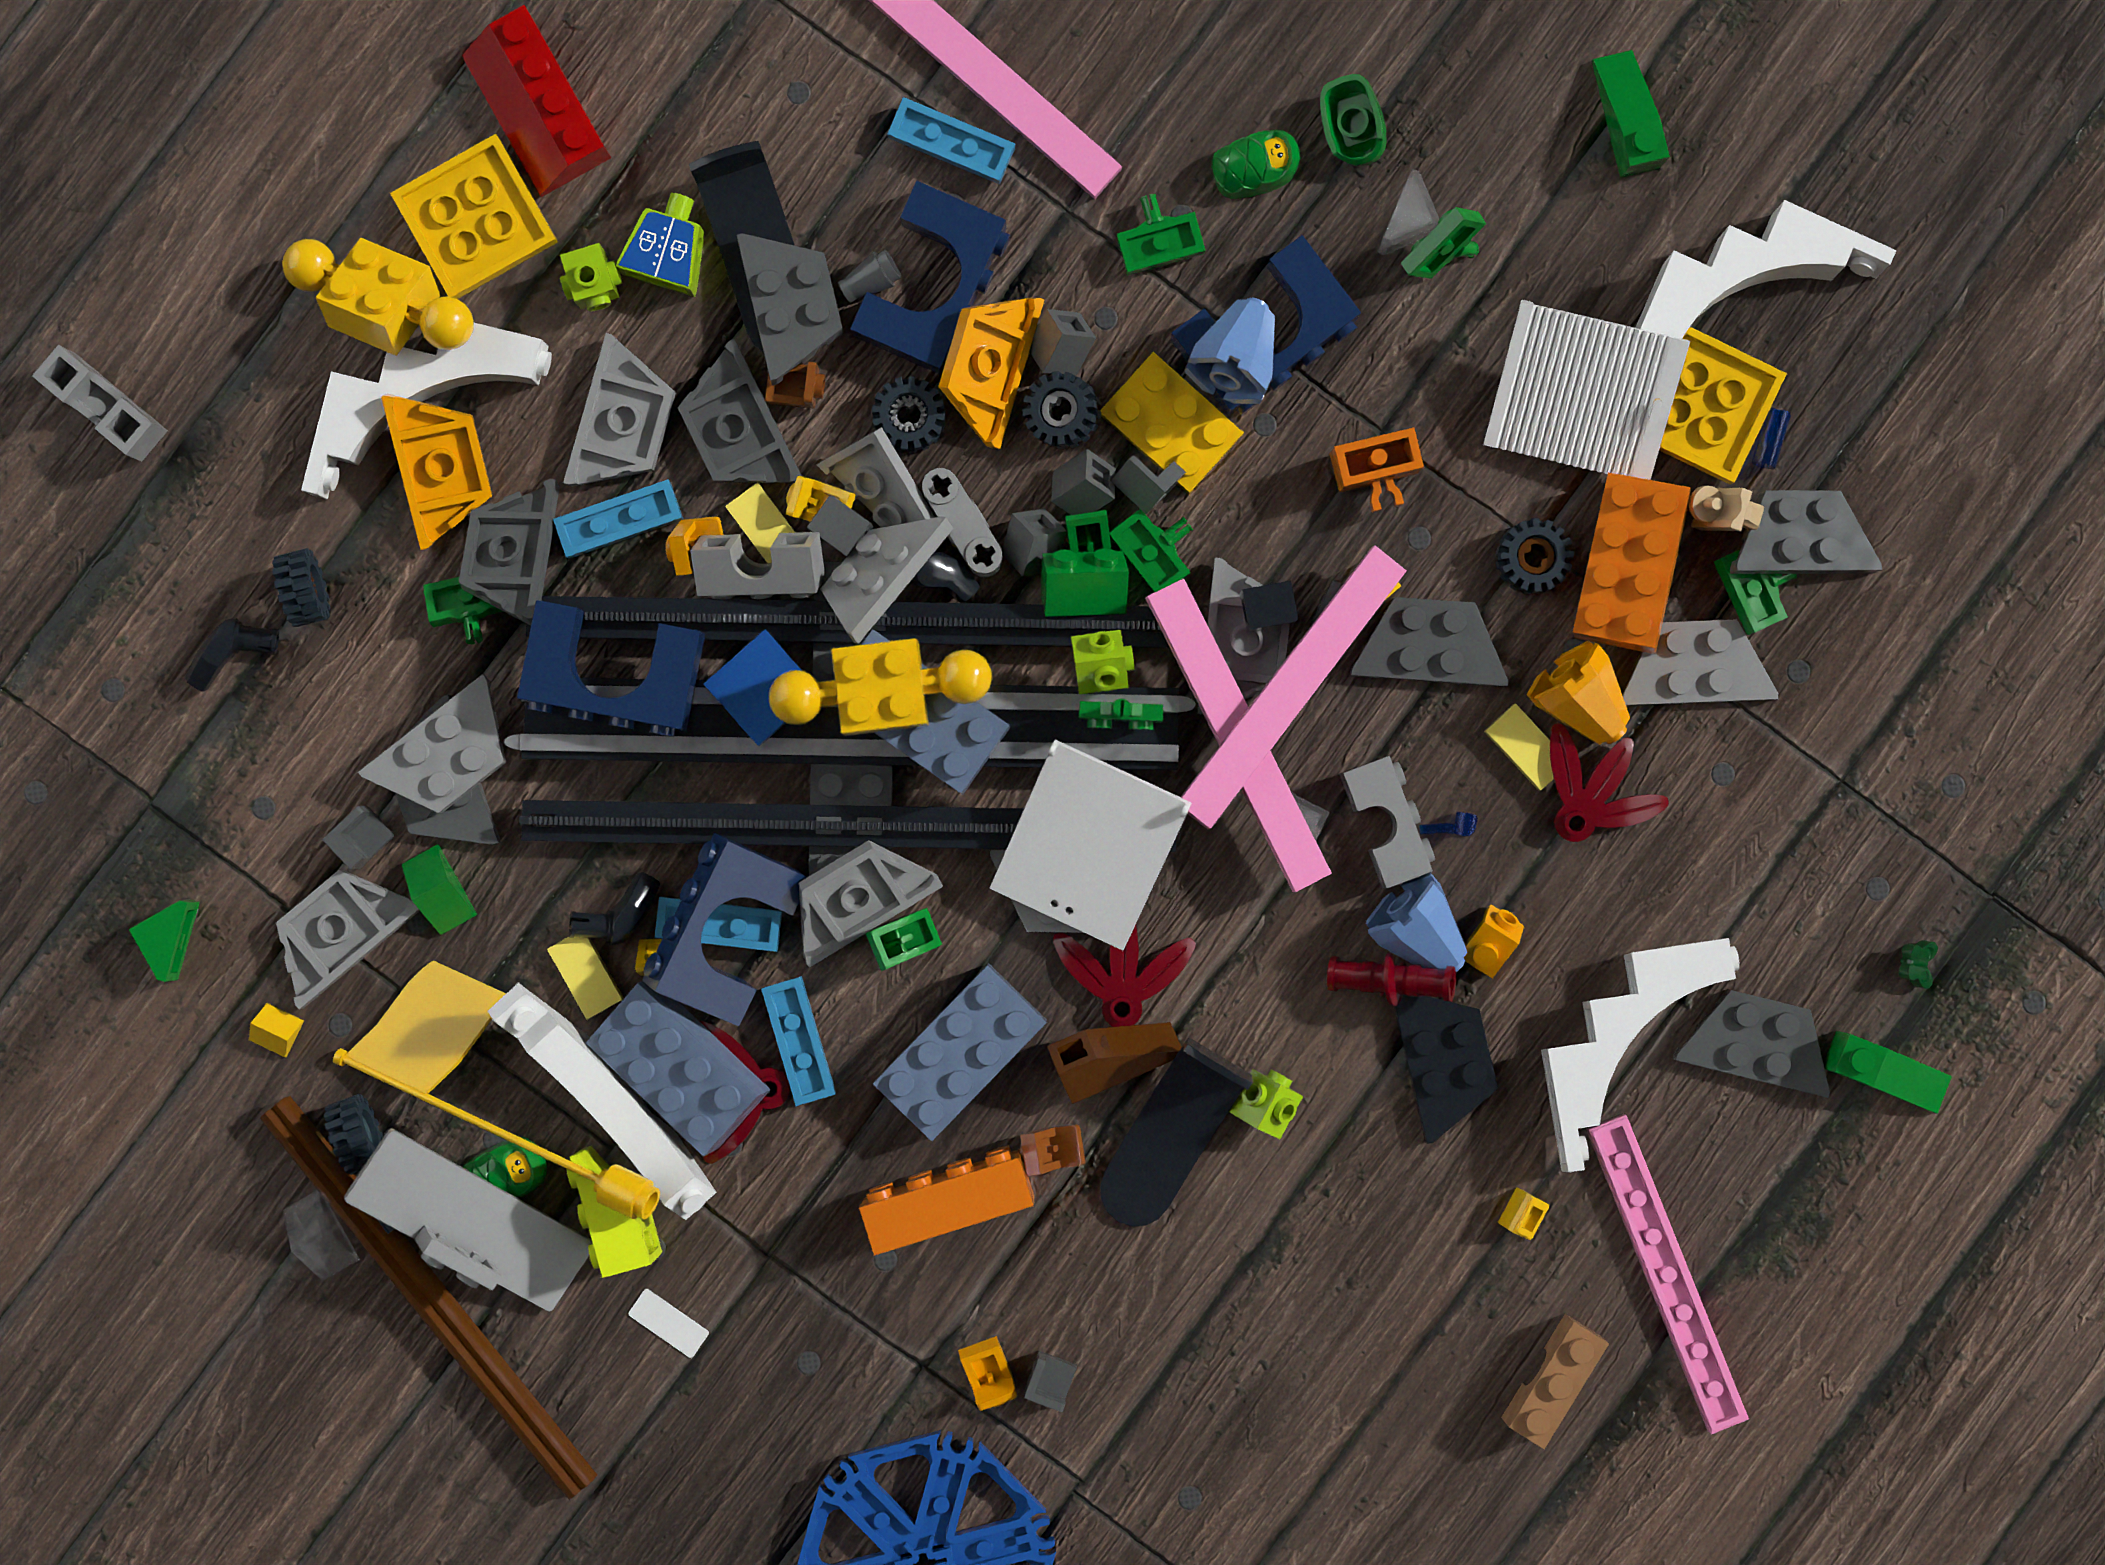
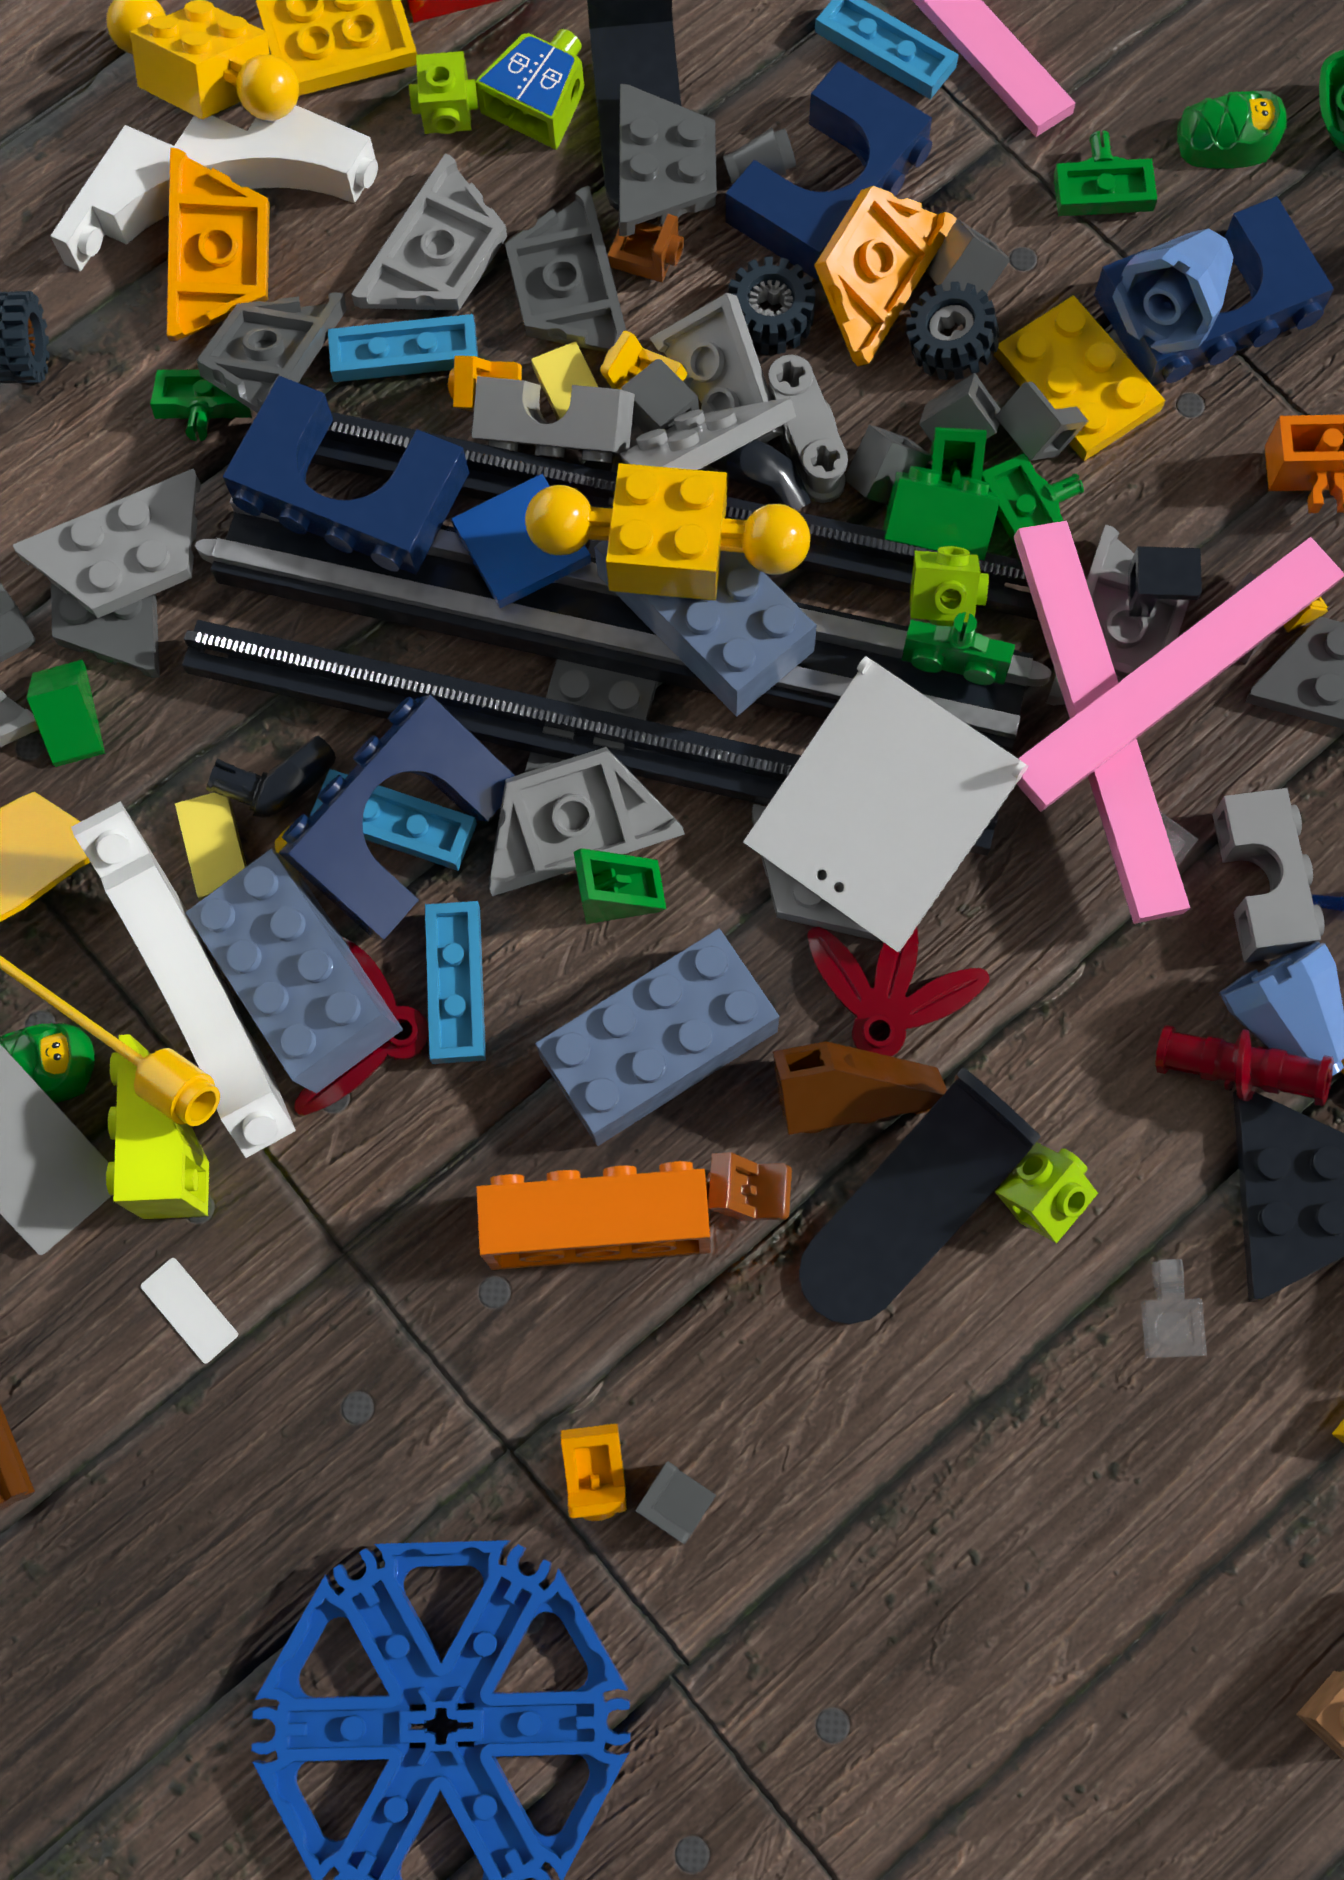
camera: 15 degrees right, 15 degrees down
(1372, 1173) = (1172, 1323): none -> clear plate

